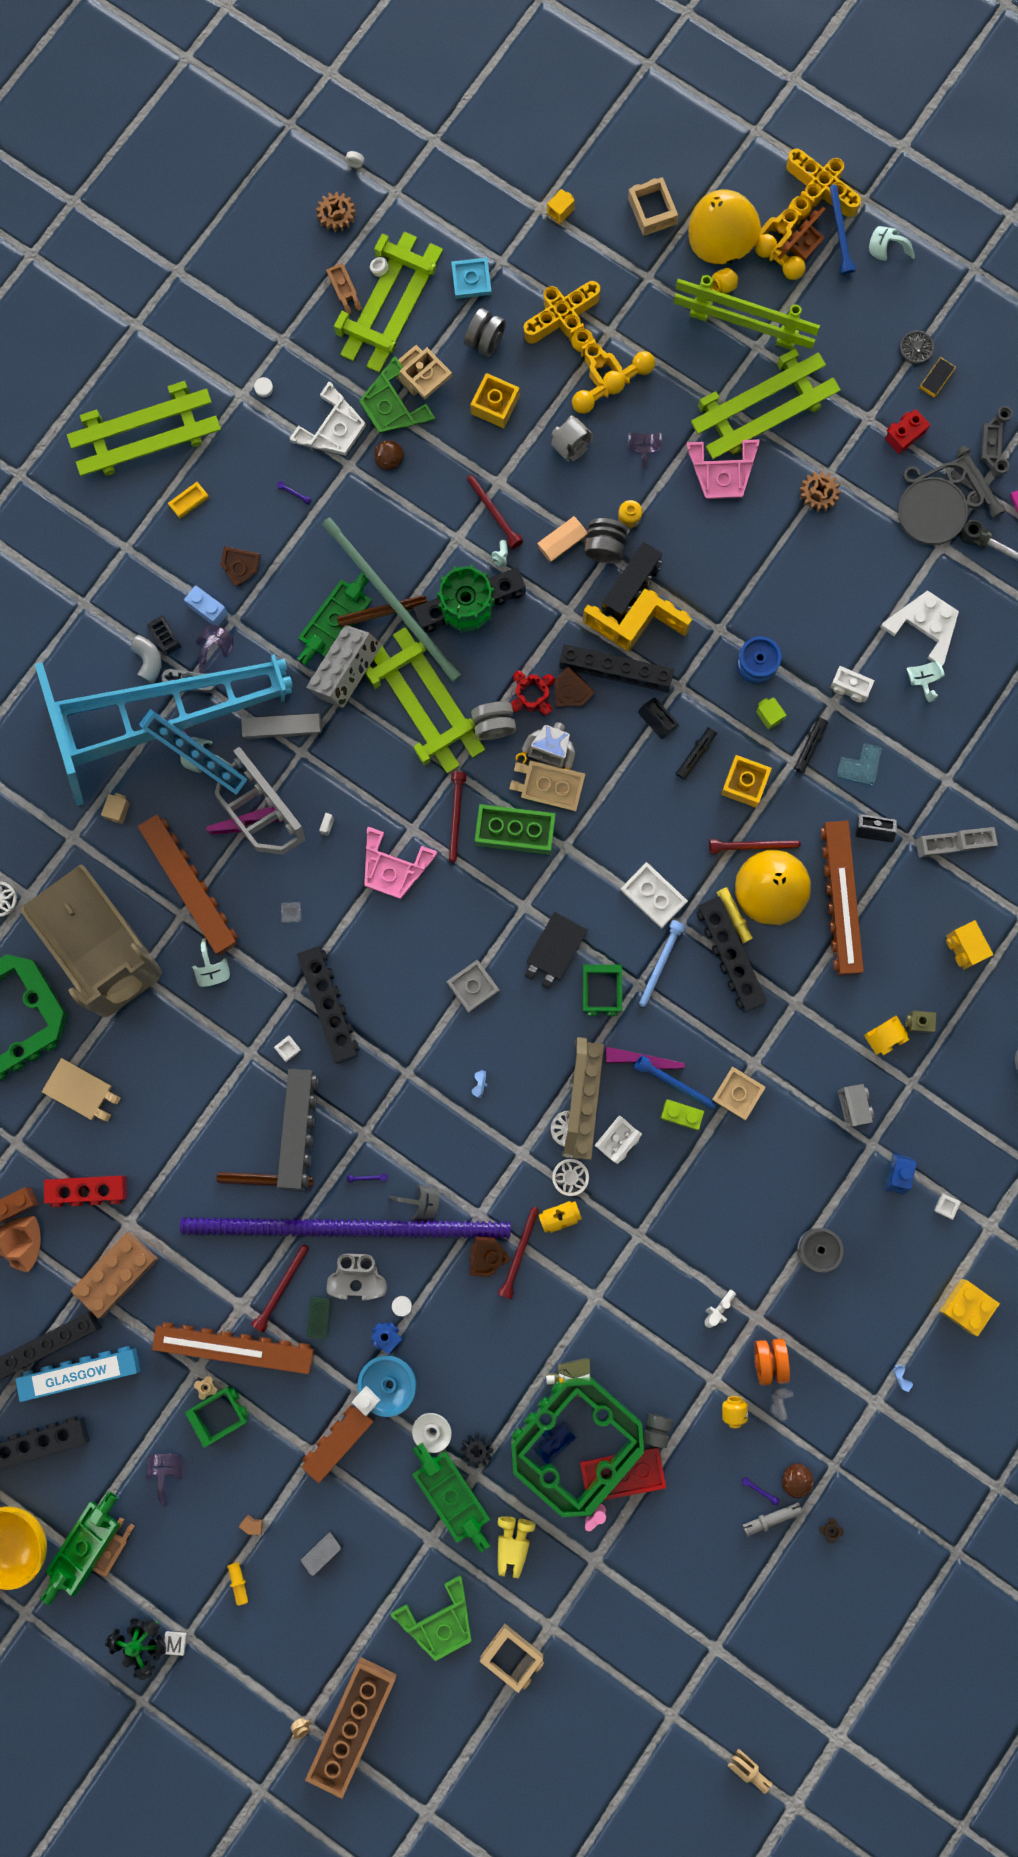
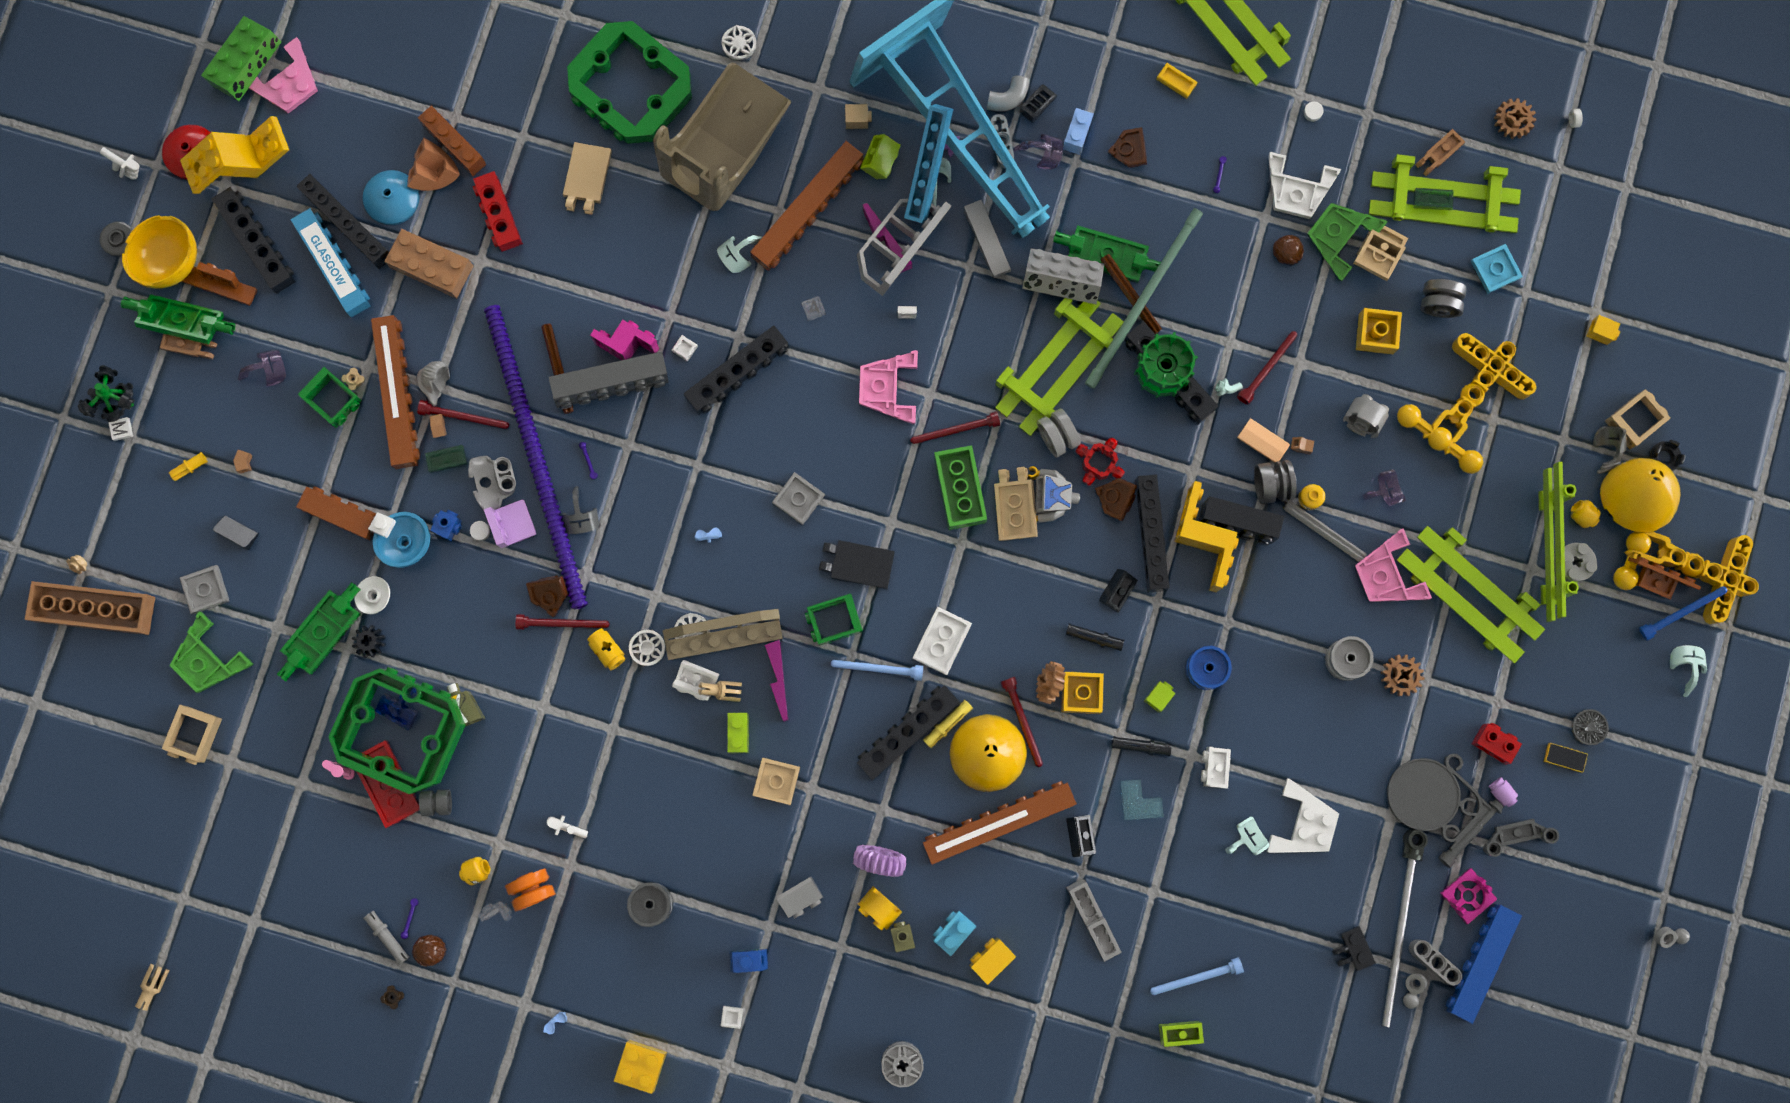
camera: 65 degrees right, 0 degrees up
(44, 1297) = (392, 208): none -> dark azure dish
(60, 1493) = (220, 282): none -> dark orange bracket
(164, 799) = (880, 156): none -> lime brick
(235, 1307) = (433, 379): none -> light grey hair
(262, 1102) = (625, 340): none -> dark pink bracket
(283, 1316) = (438, 425): none -> medium nougat piece
(369, 1603) = (204, 589): none -> light grey tile
(379, 266) = (1475, 178): white tile -> none
(386, 309) = (1433, 199): none -> clear green plate
(405, 1272) = (510, 523): none -> lavender bracket
(513, 1550) = (287, 703): light yellow piece -> none
(578, 505) = (1302, 445): none -> medium nougat piece
(635, 1118) = (719, 690): none -> tan arm
(644, 1065) = (772, 680): blue piece -> none
(659, 242) = (1603, 436): none -> dark grey helmet
(664, 514) = (1324, 531): none -> light grey axle
(692, 186) = (1672, 448): none -> black piece
(727, 806) = (1050, 682): none -> medium nougat gear
(768, 297) = (1584, 561): none -> light grey brick
(790, 532) = (1359, 664): none -> light grey wheel
(846, 1018) = (879, 860): none -> lavender gear
(930, 973) = (954, 932): none -> medium azure bracket
(952, 440) = (1503, 792): none -> lavender brick

